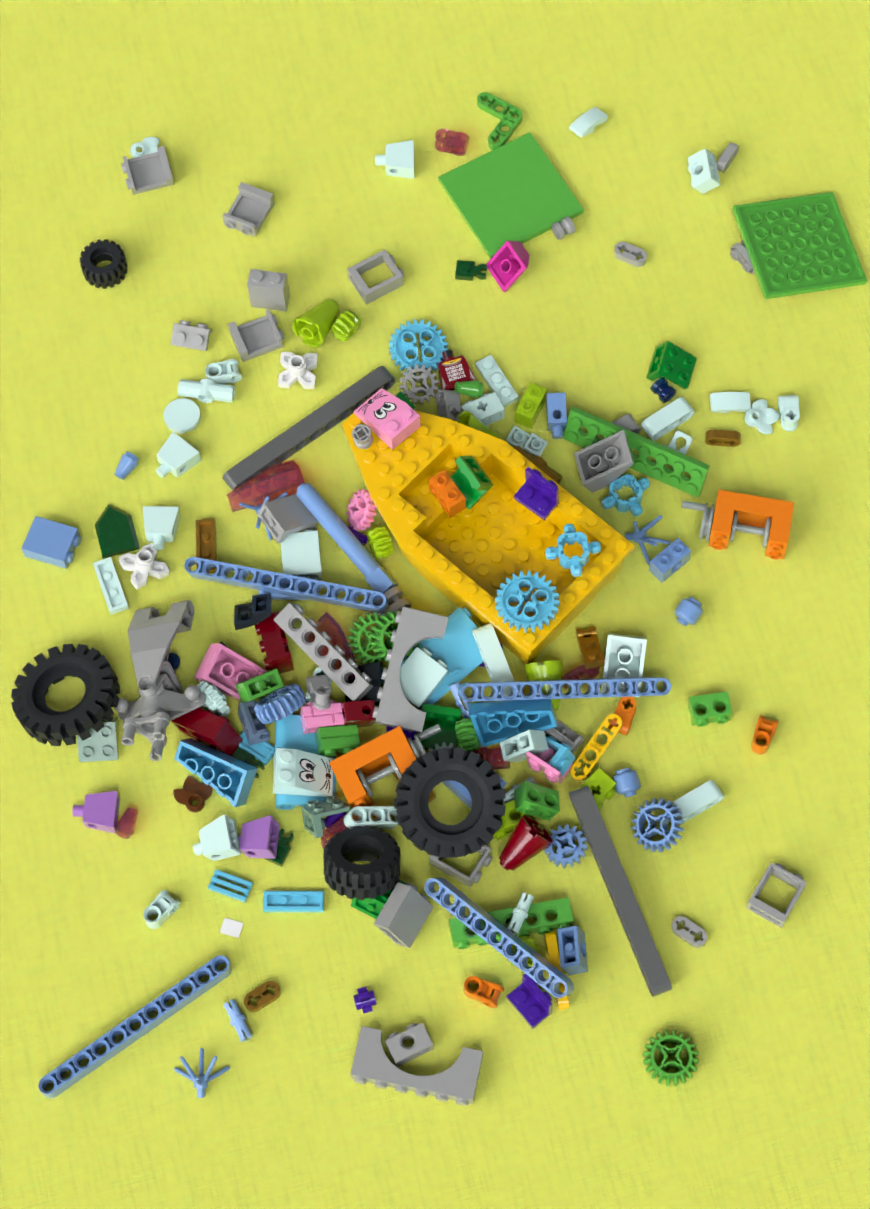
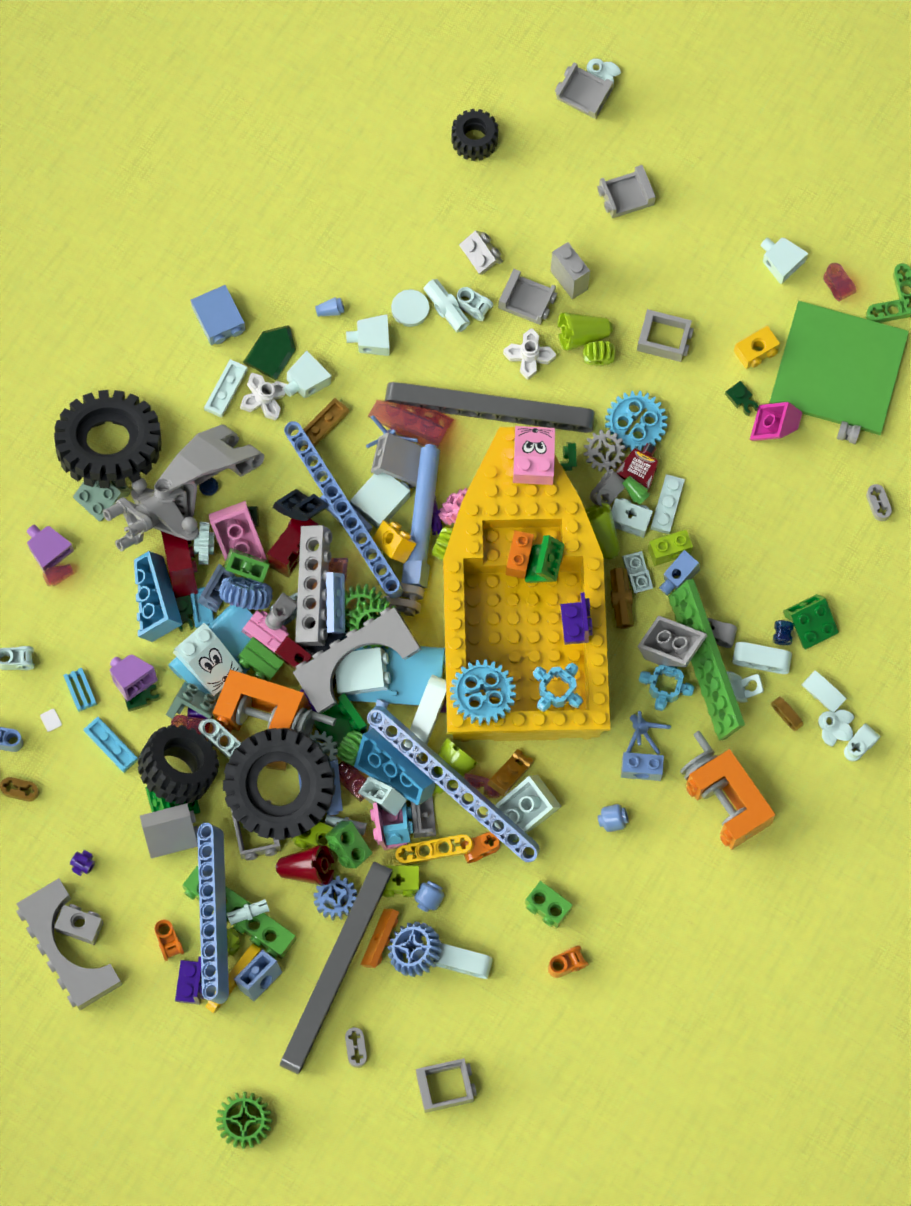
camera: 40 degrees right, 5 degrees up
(192, 792) = (123, 595): reddish brown plate -> none
(218, 839) = (104, 648): light aqua torso -> none
(347, 572) = (394, 541): none -> yellow brick
(352, 648) = (335, 603): none -> light blue plate
(365, 440) = (501, 455): light grey wheel -> none
(445, 220) = (765, 340): none -> yellow brick
(625, 843) = (380, 938): none -> orange tile

